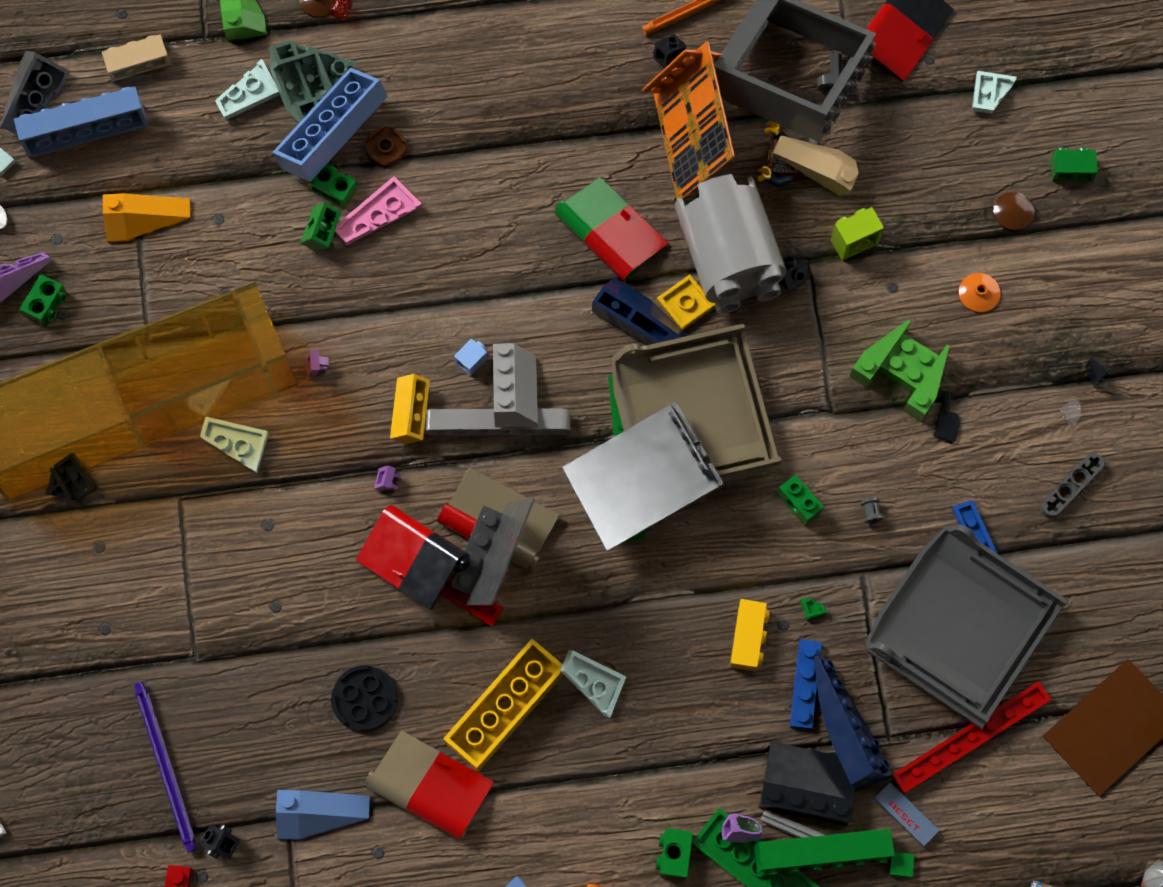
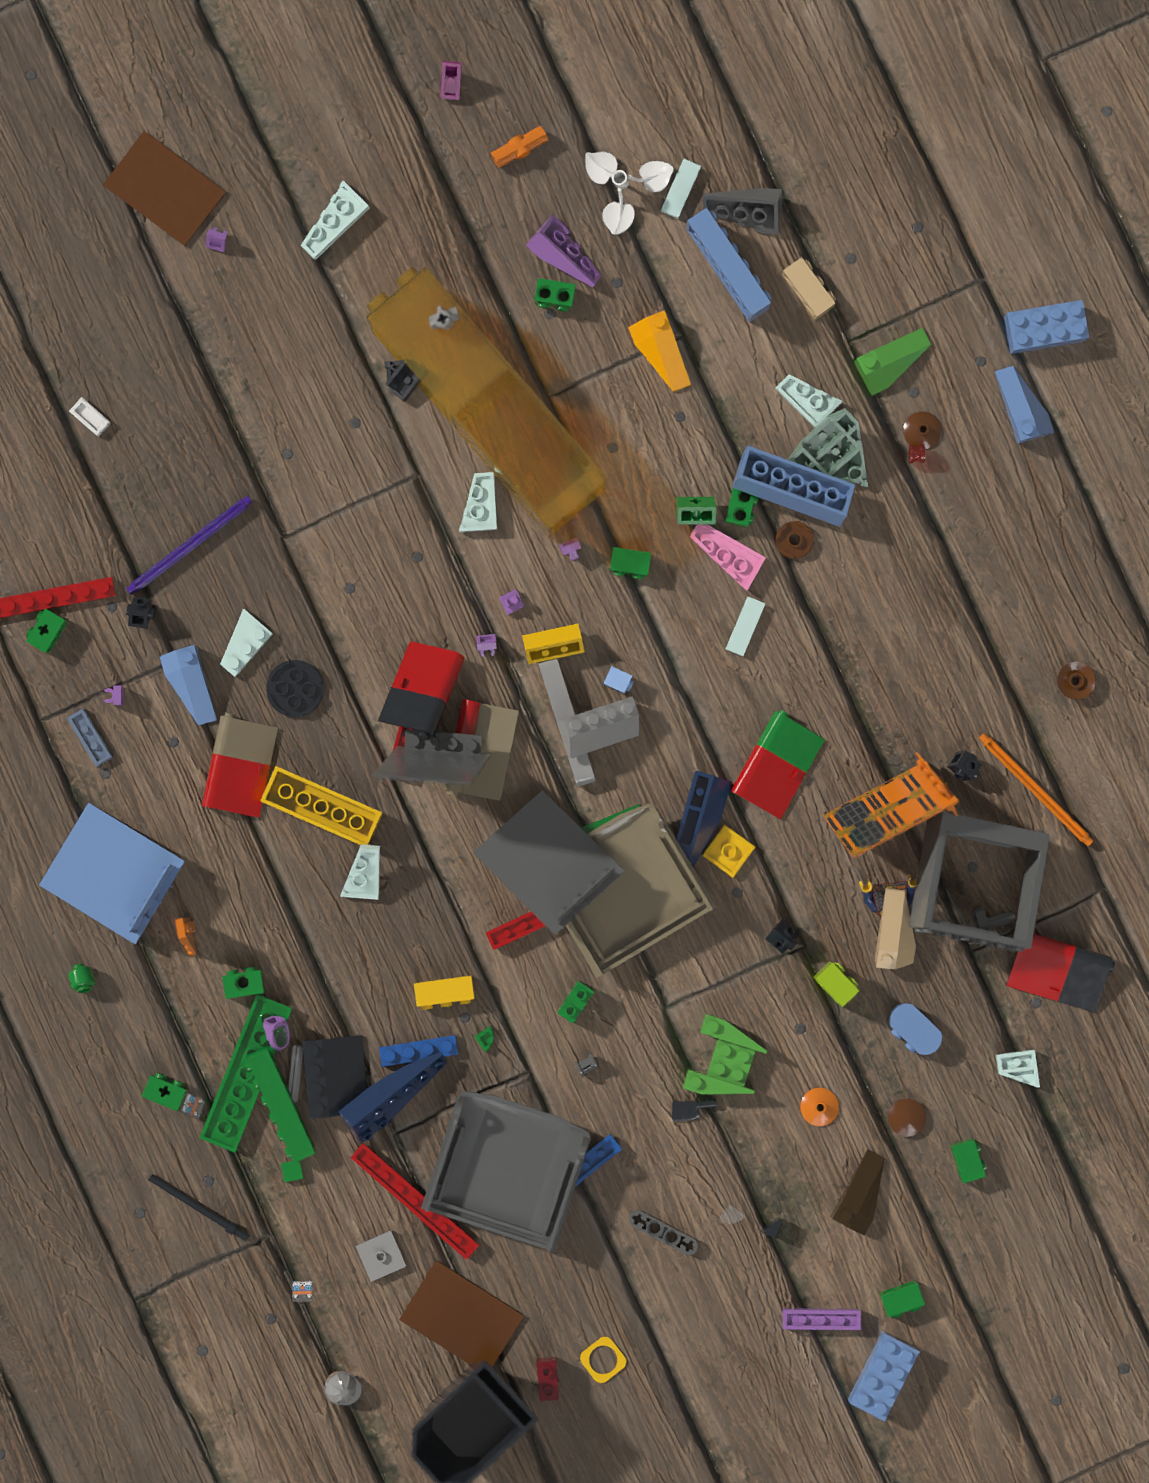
camera: 70 degrees right, 15 degrees up
(20, 393) = (444, 318): none -> light grey piece
(294, 737) = (244, 643): none -> light aqua wing
(350, 441) = (511, 602): none -> medium lavender tile
(351, 309) = (630, 562): none -> green brick
(457, 218) = (745, 626): none -> light aqua tile
(702, 536) = (513, 930): none -> red gear
(731, 243) = (785, 876): light grey brick -> none
(906, 814) = (334, 1163): sand blue tile -> none
(924, 176) = (914, 1029): none -> medium blue brick
(1023, 794) = (381, 1255): none -> light grey plate
(1085, 281) = (859, 1199): none -> dark brown wedge

